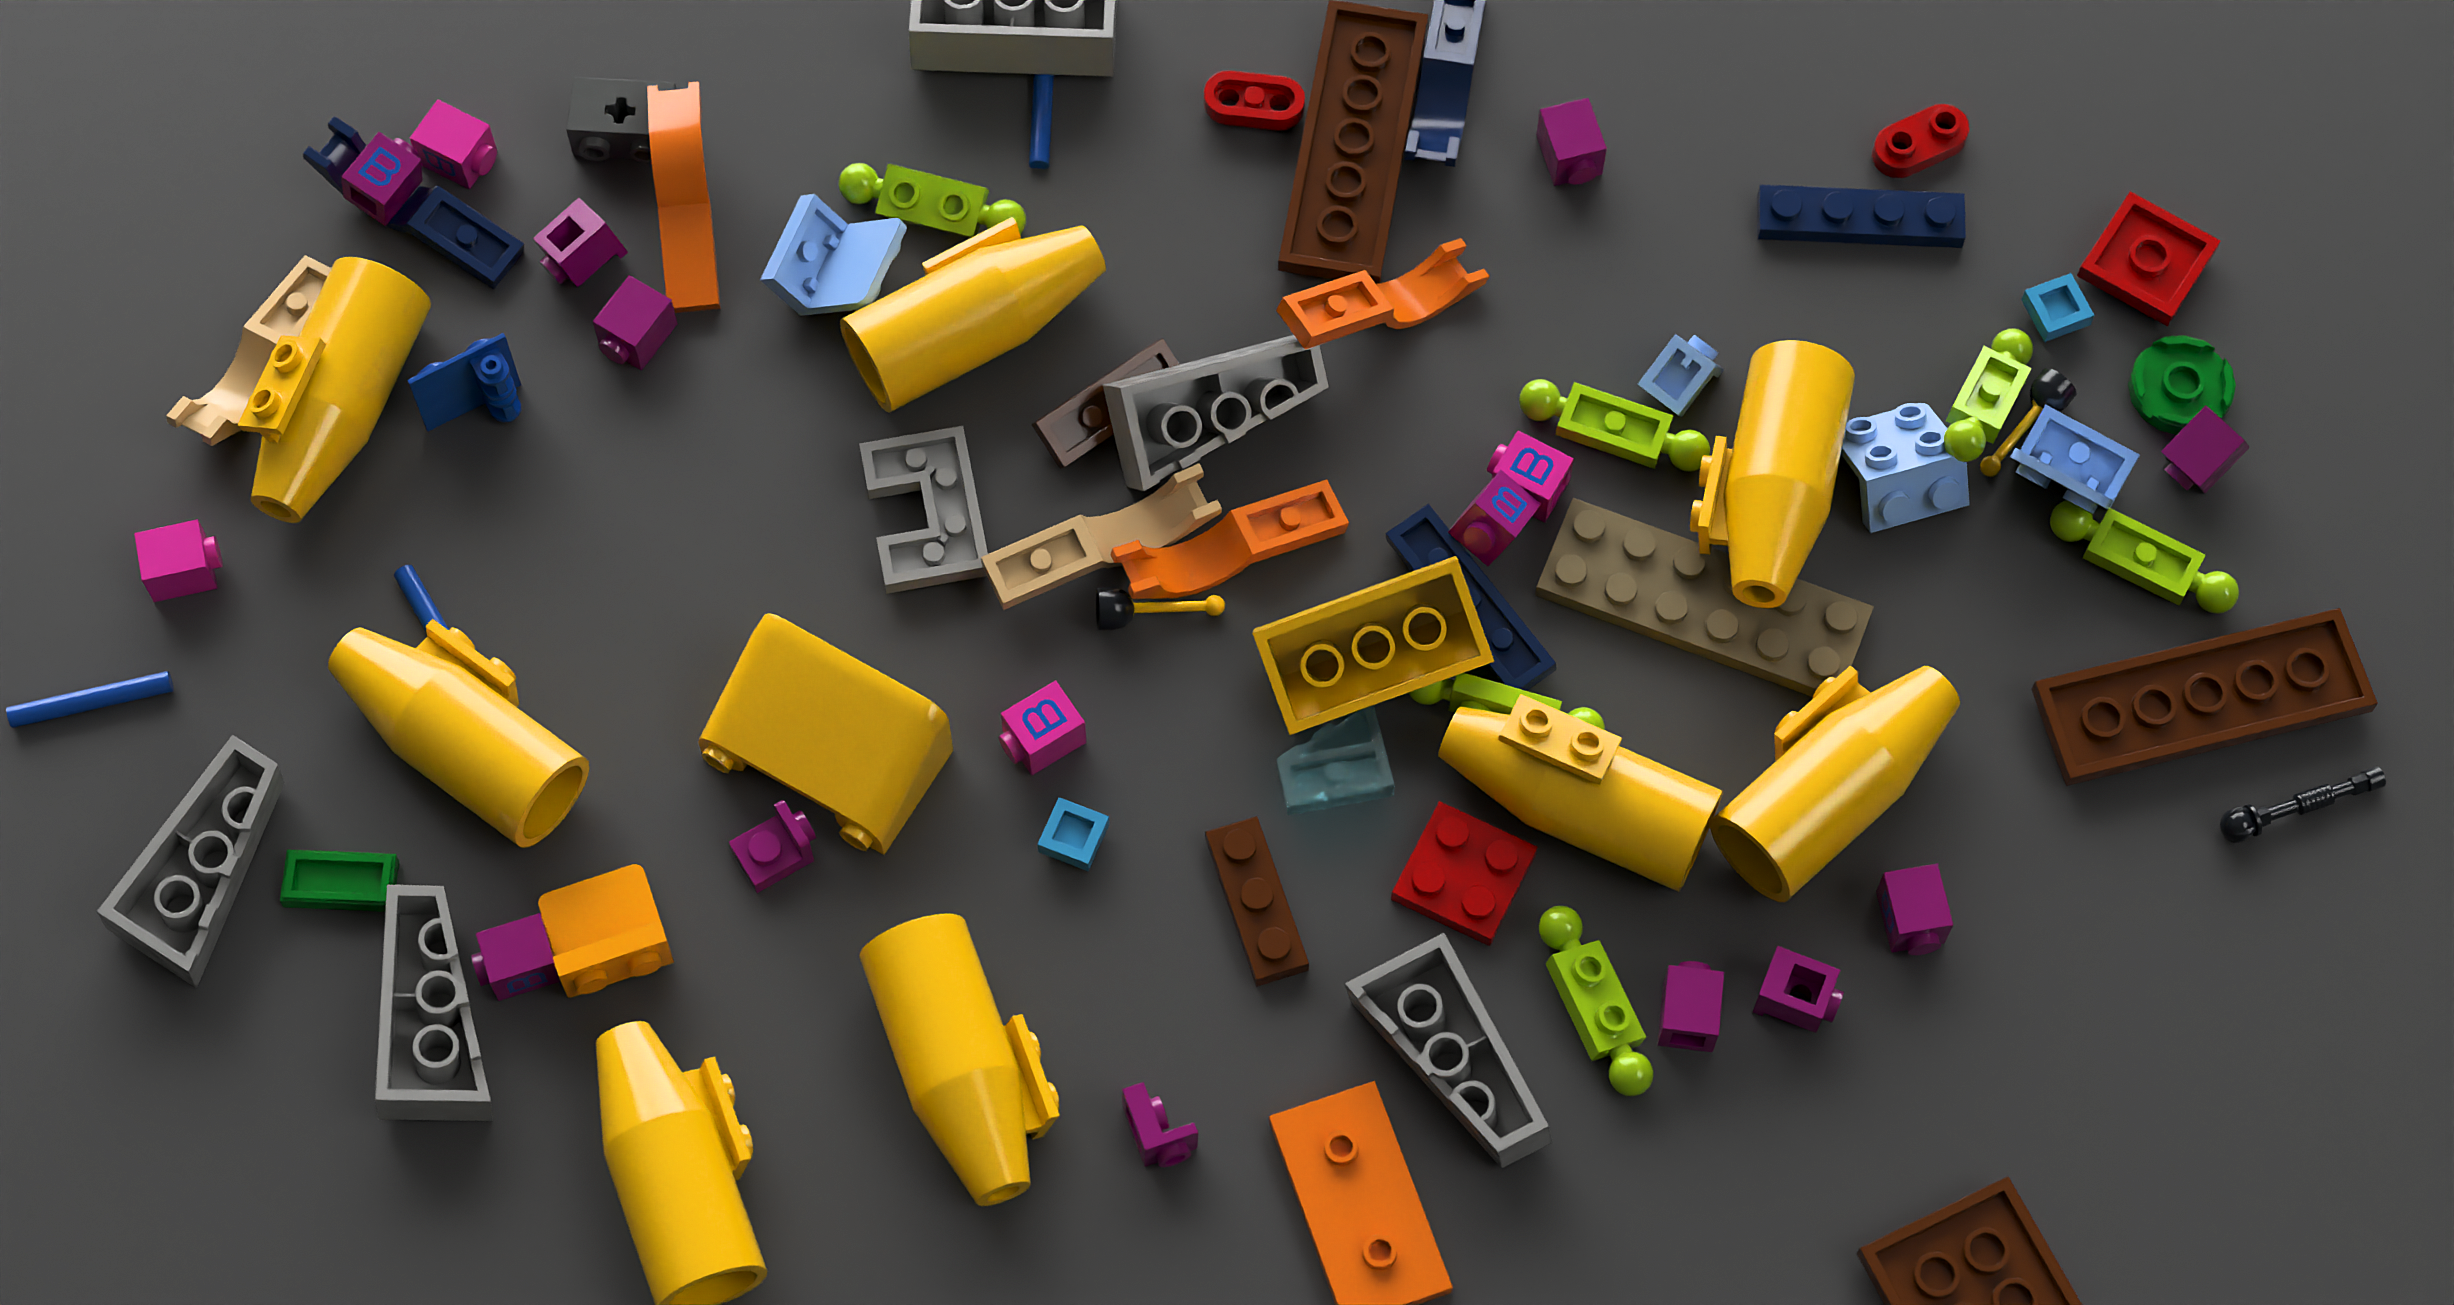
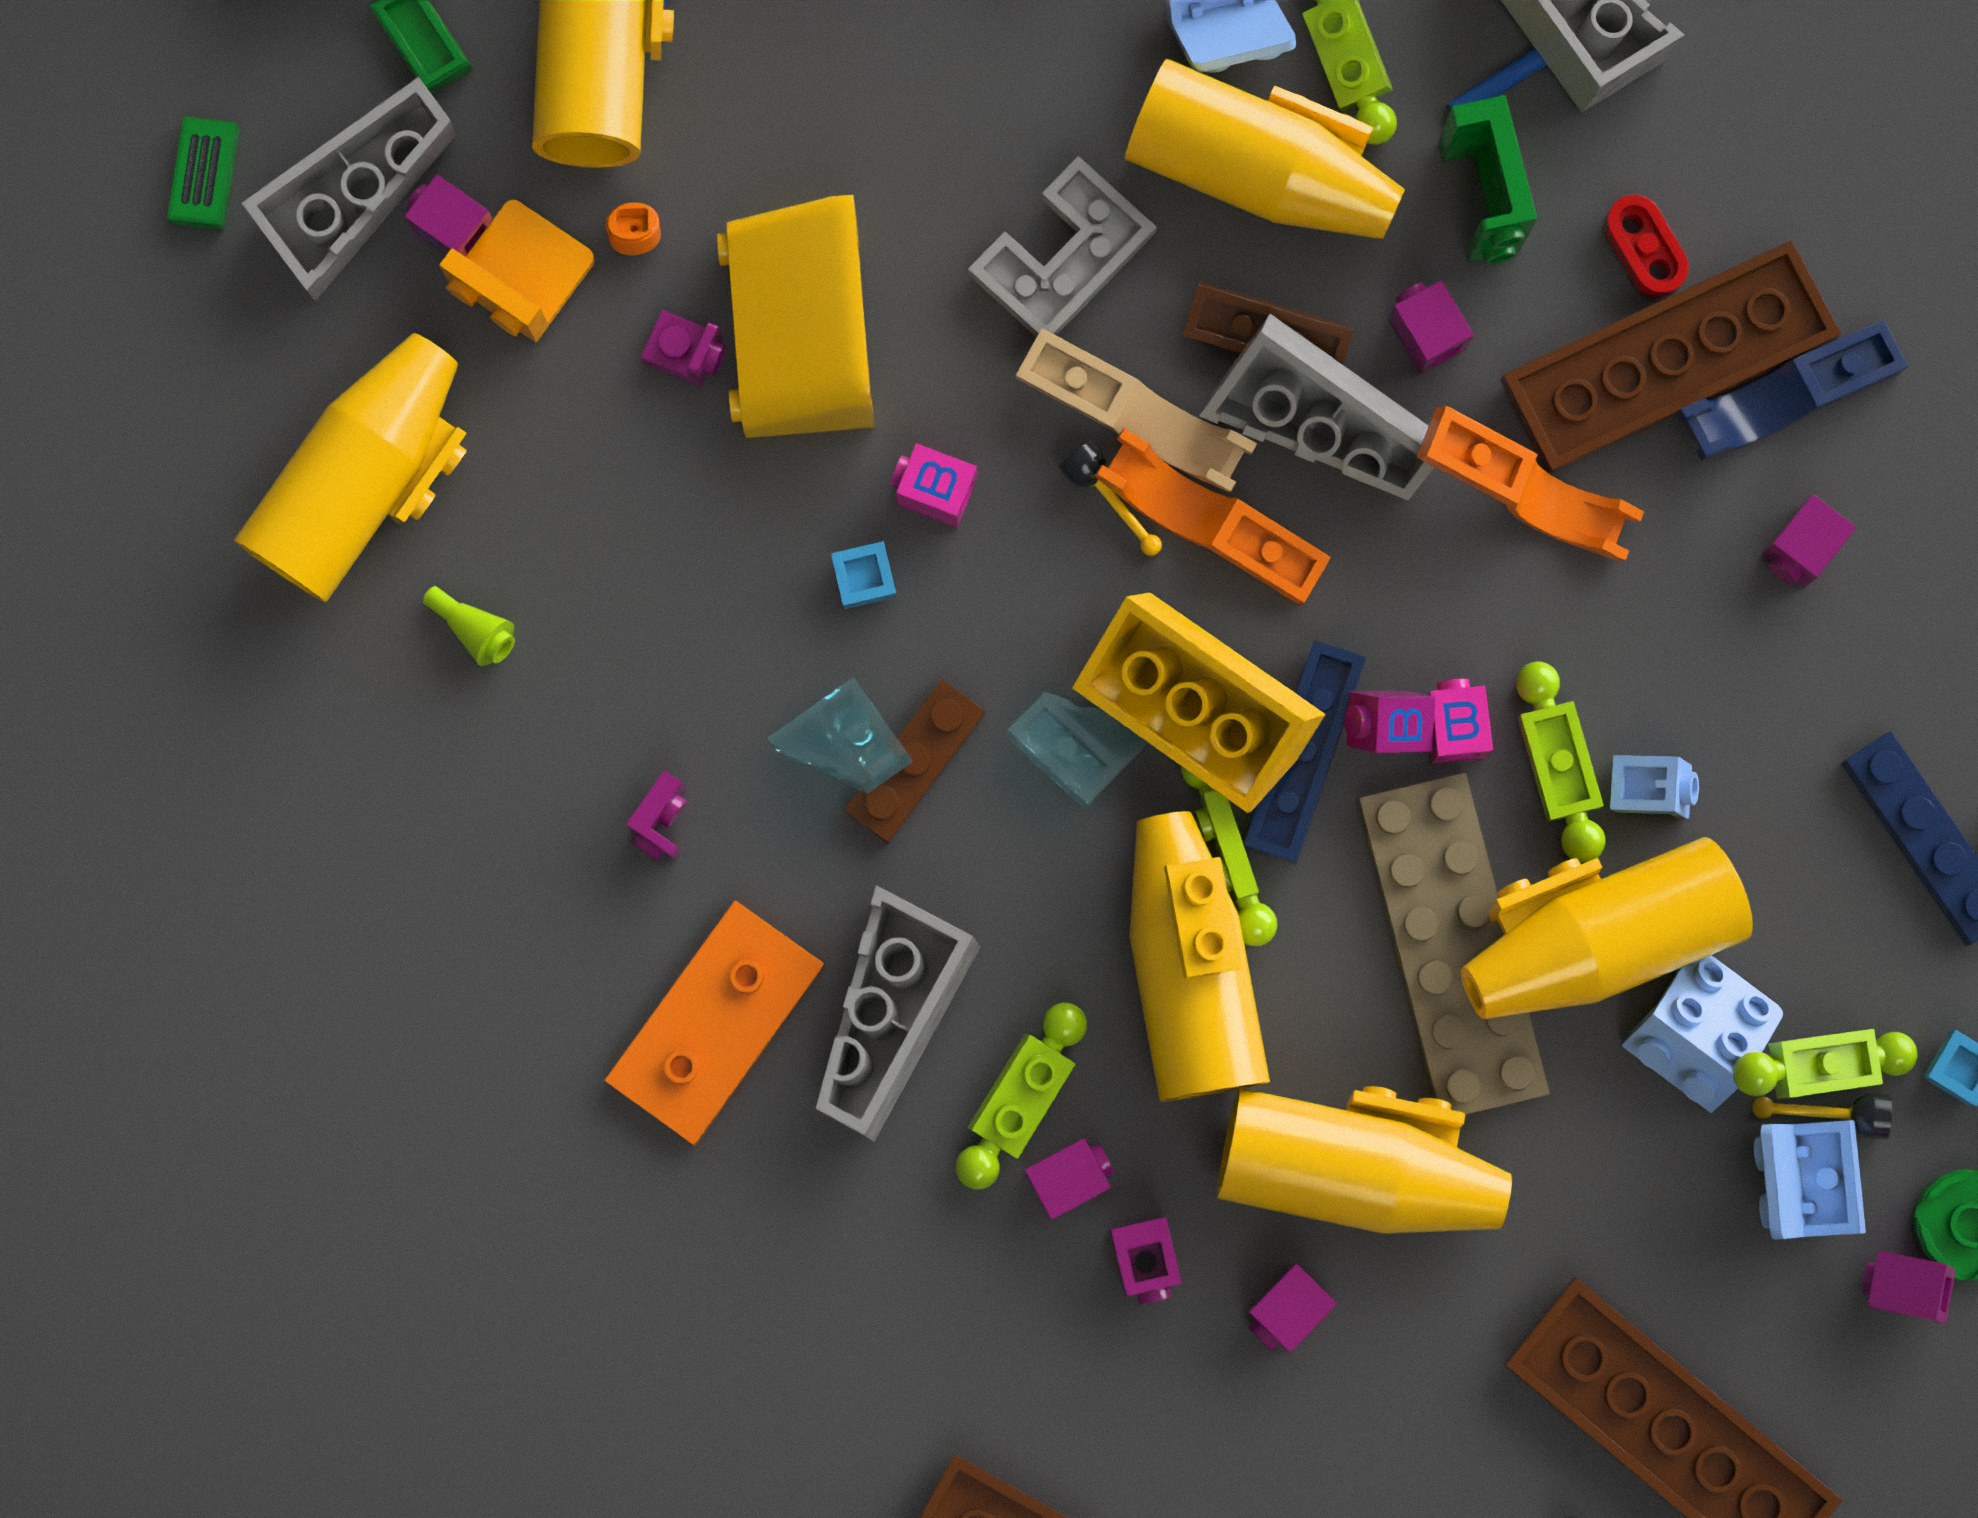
camera: 55 degrees right, 15 degrees up
(308, 1134) = (203, 173): none -> green tile
(642, 819) = (633, 228): none -> orange tile
(884, 1170) = (481, 633): none -> lime cone
(963, 1070) = (598, 625): yellow piece -> none
(1121, 155) = (1488, 134): none -> green panel
(1197, 287) = (1429, 325): none -> magenta brick
(1201, 936) = (844, 739): none -> clear light blue wing
(1464, 873) = (1059, 912): red plate -> none
(2145, 557) = (1770, 1303): lime plate -> none

